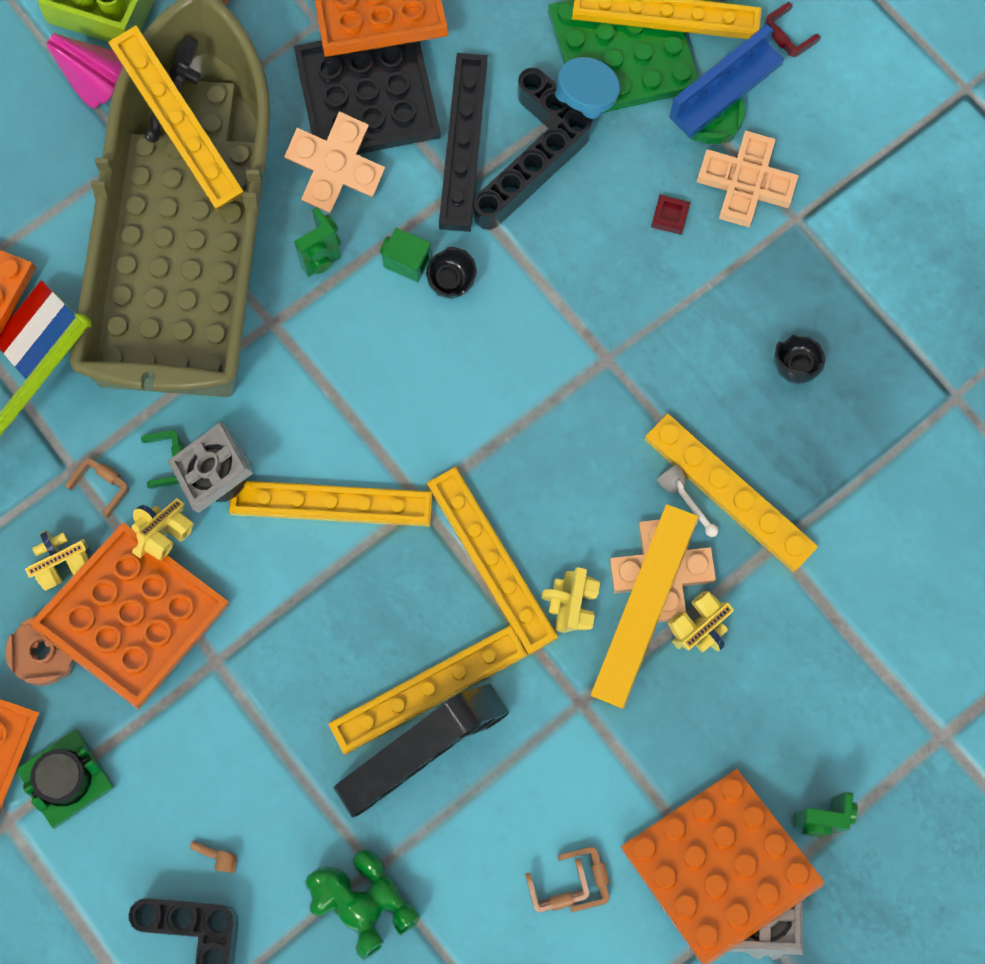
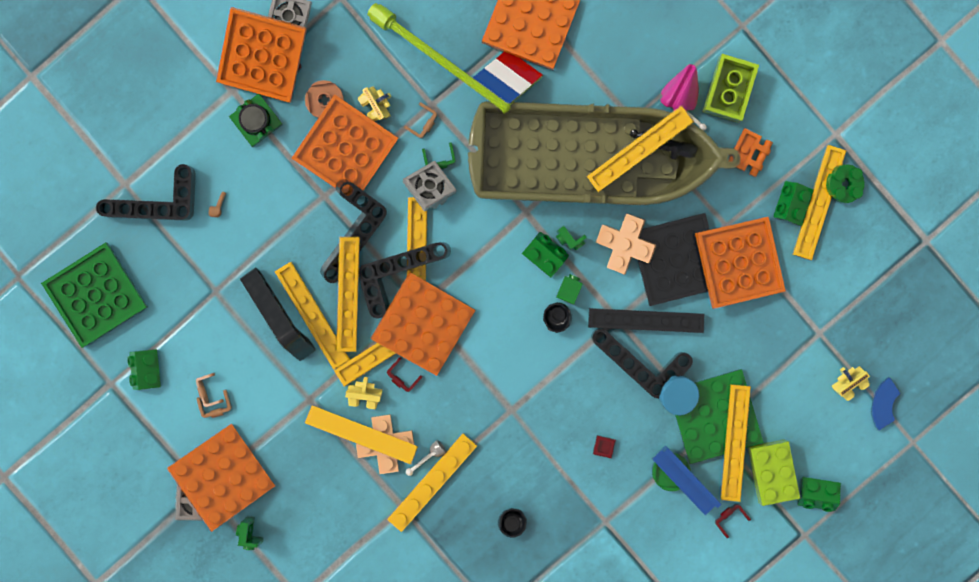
camera: 90 degrees right, 15 degrees up
(154, 525) = (385, 157): light yellow hips -> none
(279, 602) = (355, 230): none -> black beam
(345, 290) = (545, 254): none -> green bracket
(350, 532) = (395, 267): none -> black beam
(361, 910) = (191, 285): green animal -> none
(391, 617) = (347, 294): none -> yellow tile
(451, 492) = (423, 324): none -> orange plate
(551, 544) = (397, 381): none -> dark red piece
(711, 613) = (351, 467): light yellow hips -> none
(747, 179) = (627, 492): light nougat plate -> none

